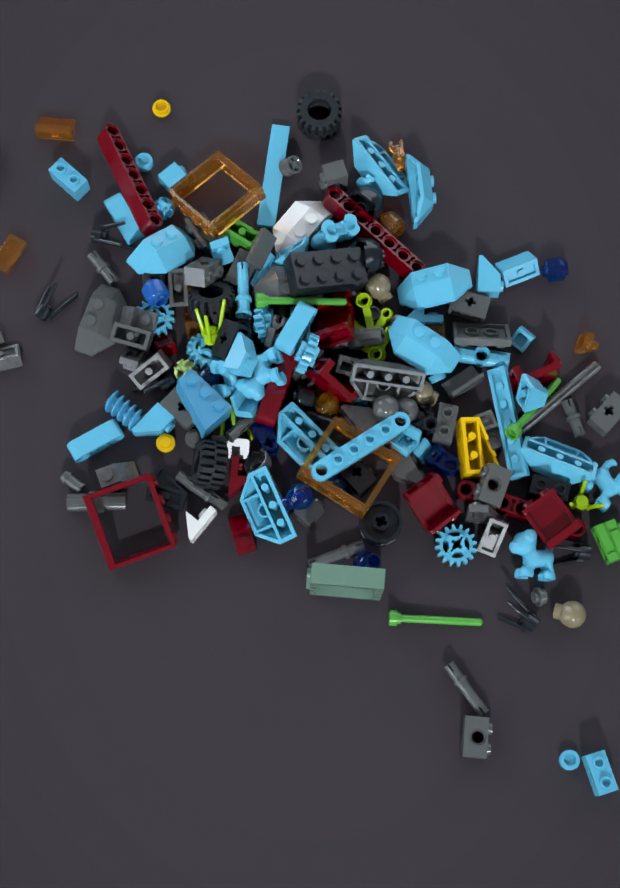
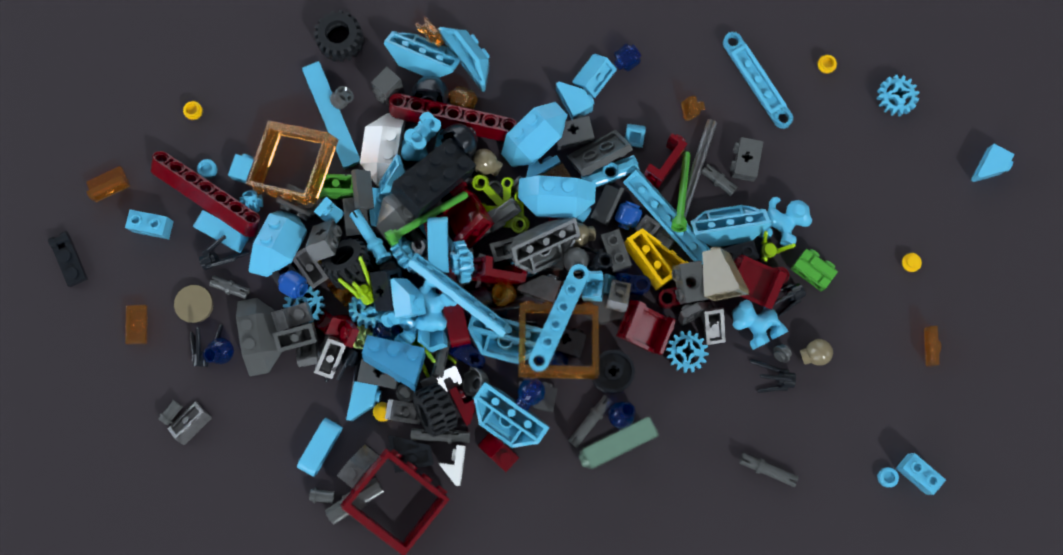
camera: 30 degrees left, 5 degrees up
(62, 313) = (219, 351): none -> clear blue piece
(65, 264) = (193, 304): none -> dark tan tile
(123, 411) = (328, 406): dark azure piece -> none
(174, 353) = (344, 329): none -> dark red slope
(180, 451) = (401, 412): none -> flat silver slope
(287, 377) = (458, 294): none -> medium azure tile
(367, 181) = (419, 73): medium azure arm -> none
(384, 407) = (557, 269): dark grey piece -> none
(396, 617) = (674, 444): bright green piece -> none
(423, 461) = (618, 296): none -> flat silver slope
(469, 748) = (791, 500): dark grey brick -> none
(475, 401) = (628, 215): none -> blue head
(522, 494) = (721, 275): none -> slope
(531, 393) = (675, 182): medium azure slope -> none

